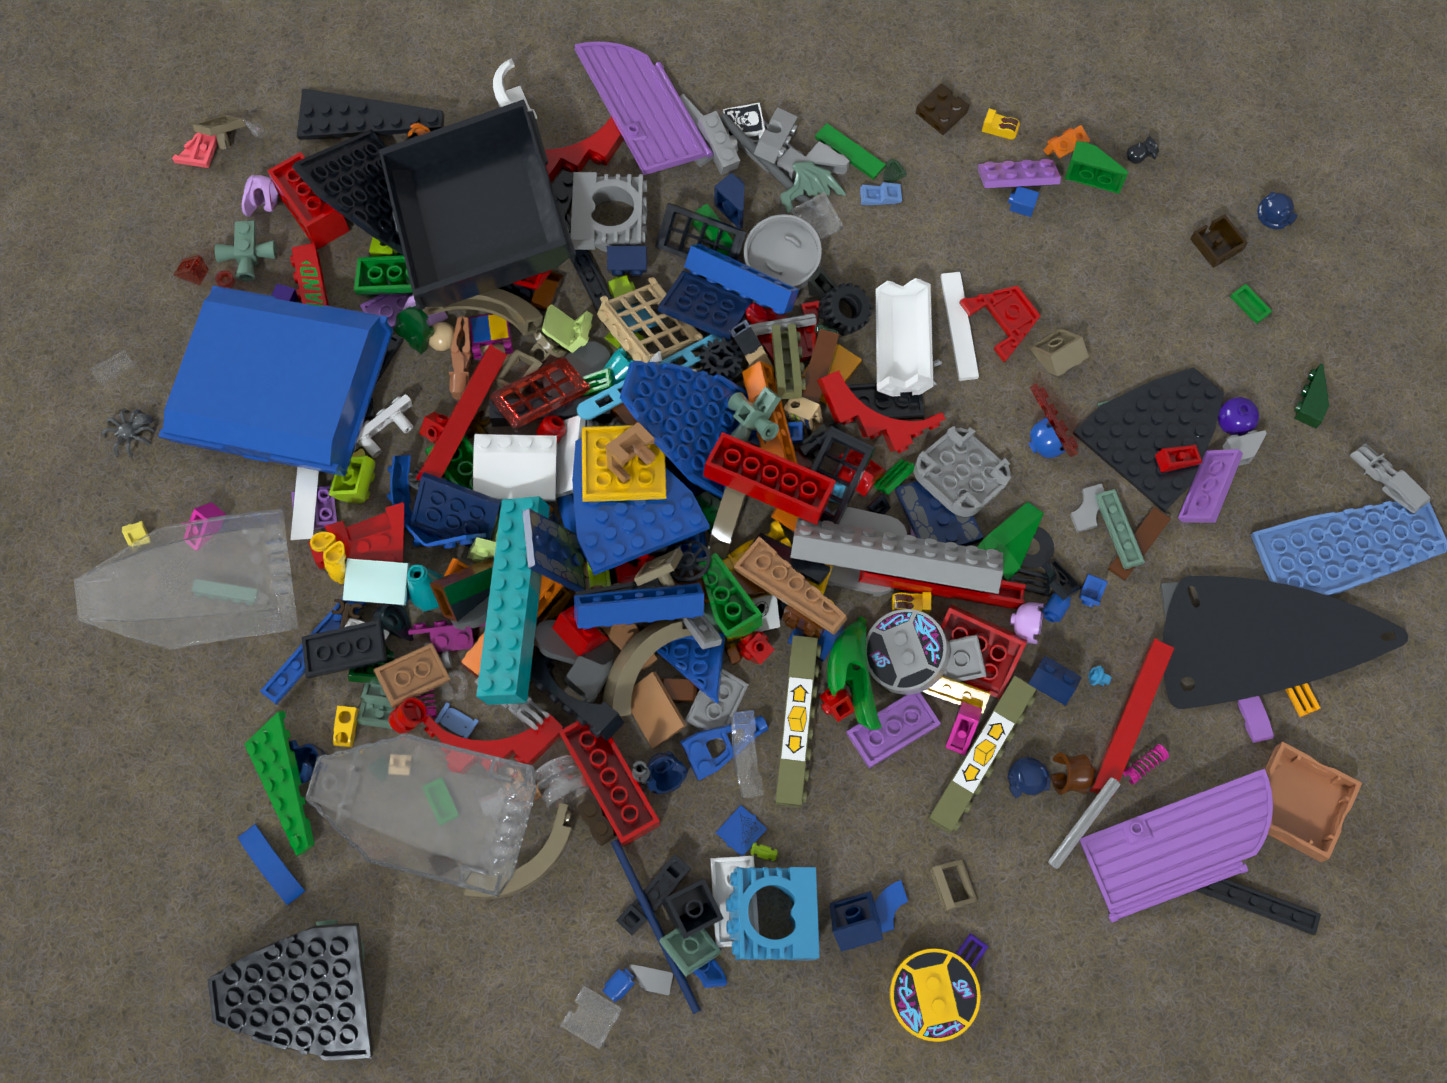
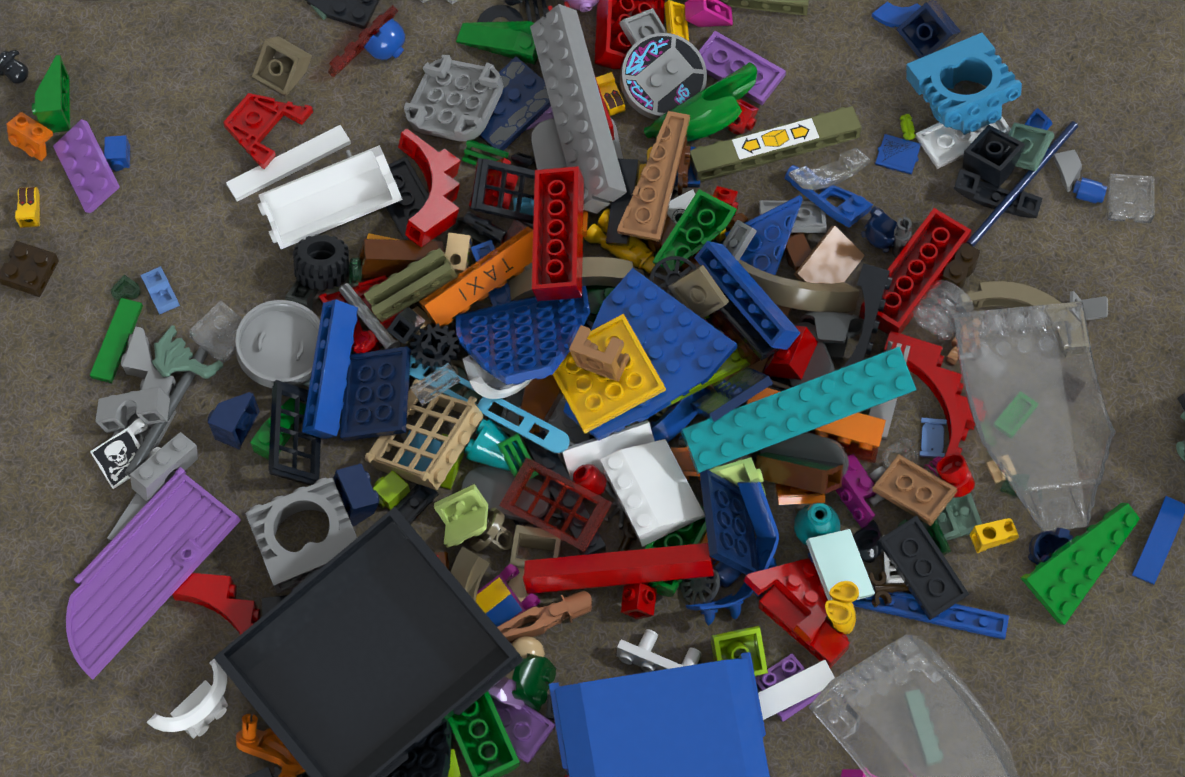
camera: 110 degrees left, 5 degrees down
(505, 917) = (1094, 307): none -> light grey bracket
(687, 345) = (435, 384): none -> clear tile
(754, 415) = (491, 282): sand green brick -> none

